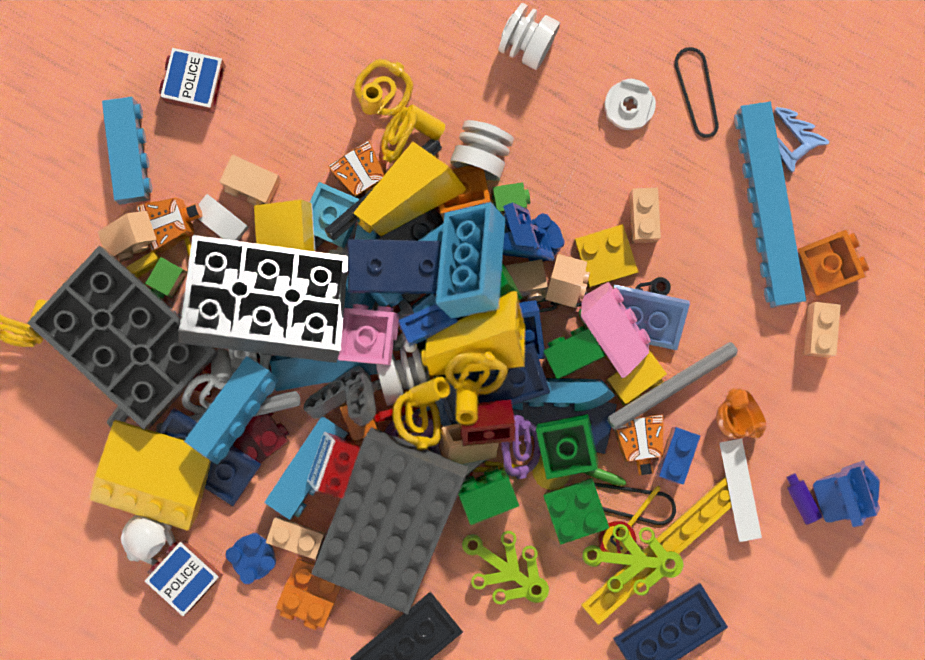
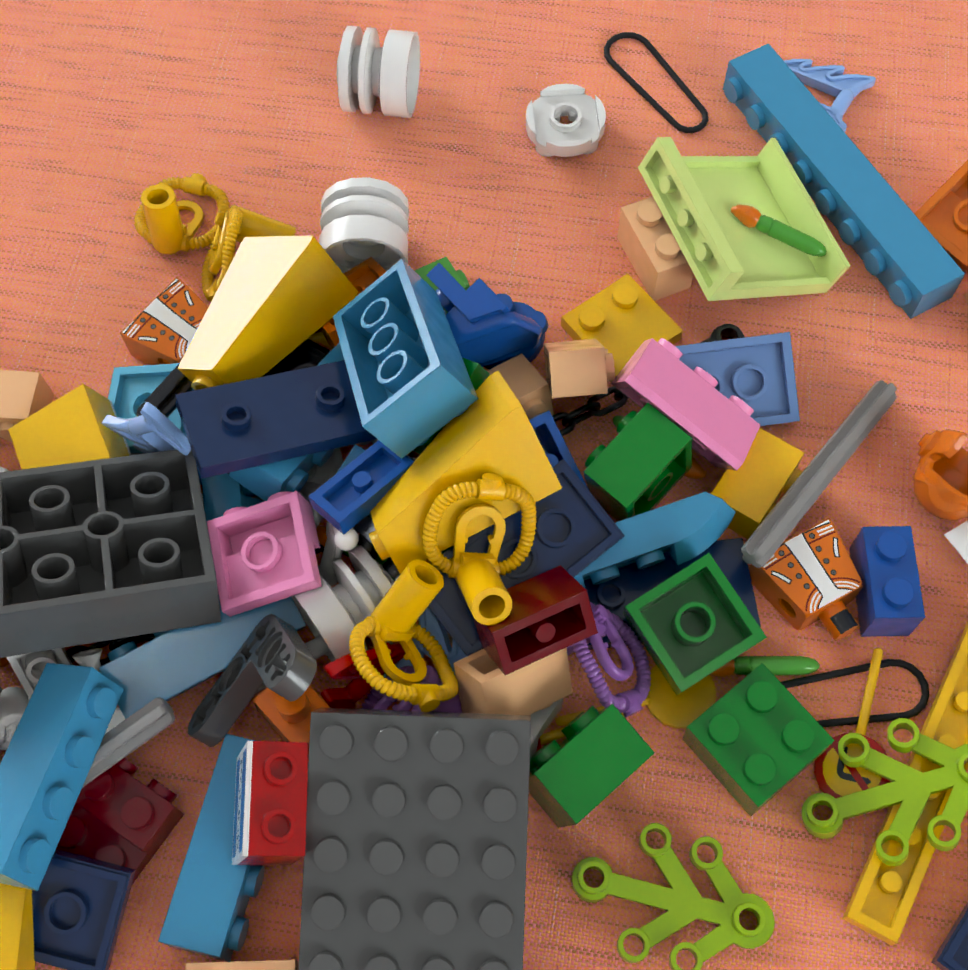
camera: 15 degrees left, 20 degrees down
(327, 241) = (150, 432): none -> light blue piece
(698, 220) = (722, 251): none -> yellowish green panel
(717, 233) = (752, 218): none -> bright green piece

